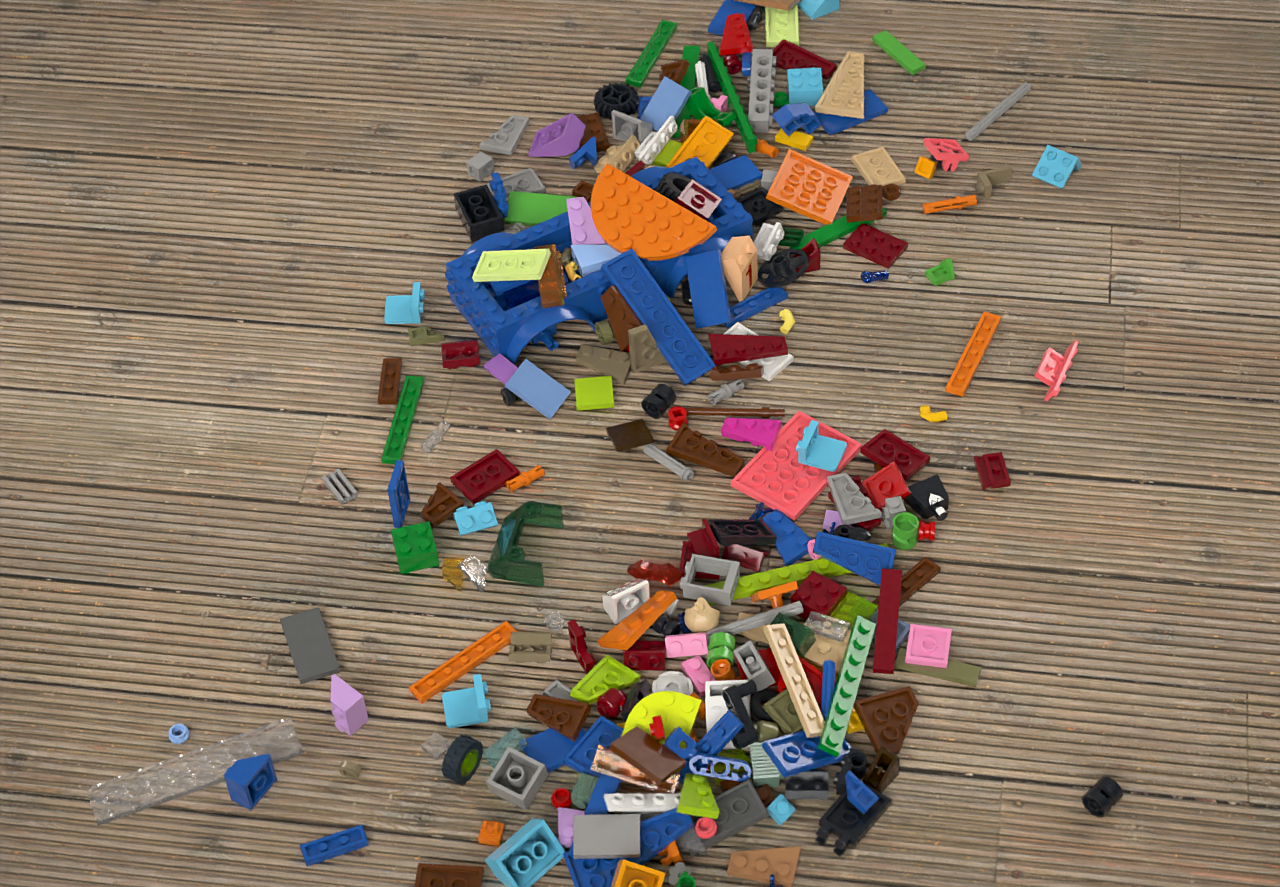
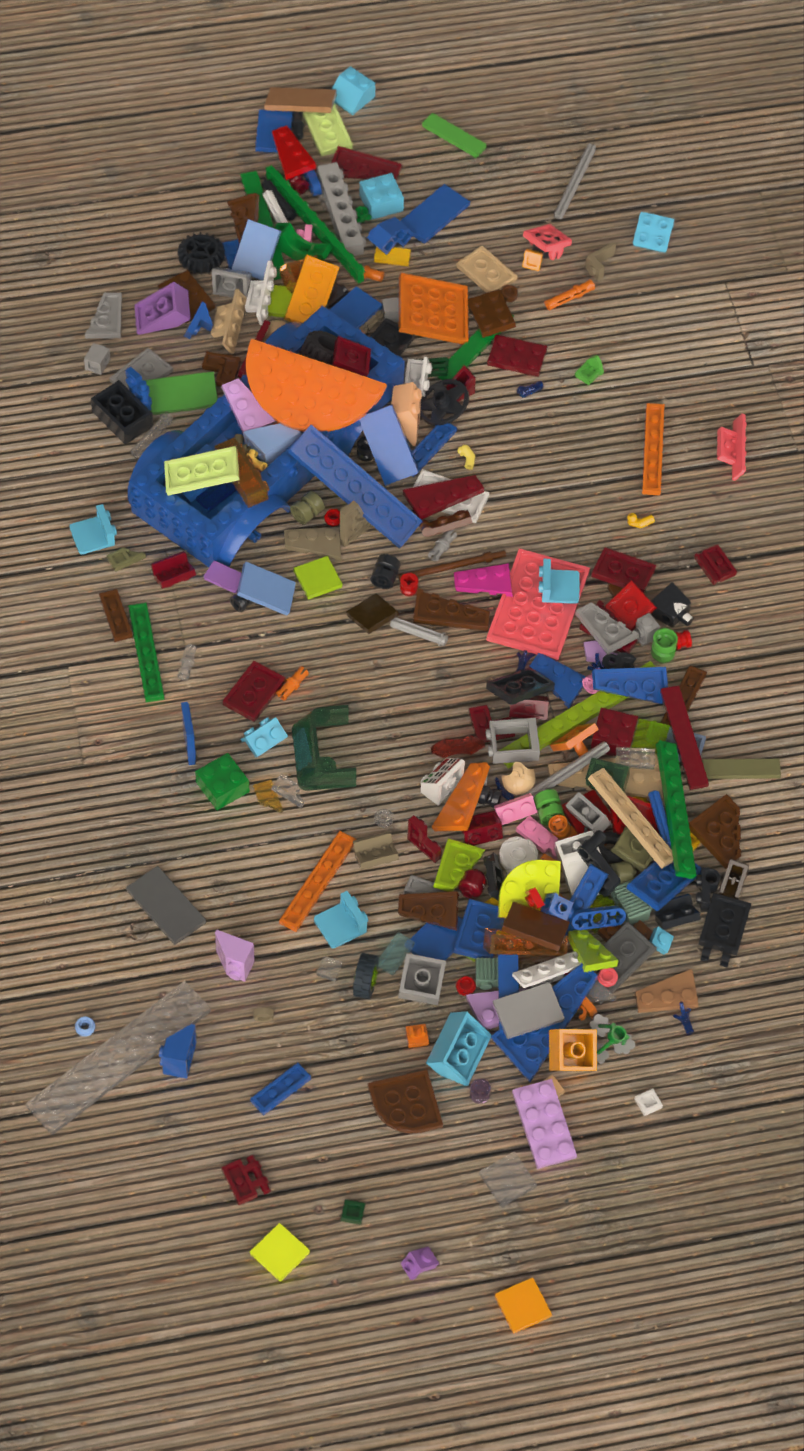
camera: 25 degrees left, 10 degrees up
(339, 474) = (105, 729): light grey tile -> none
(440, 506) = (226, 732): reddish brown wing -> none
(620, 316) = (321, 496): reddish brown wing -> none
(651, 53) = (210, 189): green tile -> none
(703, 541) = (492, 705): dark red panel -> none
(846, 89) = (422, 191): tan wing -> none
(859, 793) = (724, 906): blue tile -> none
(928, 646) = (728, 751): bright pink tile -> none

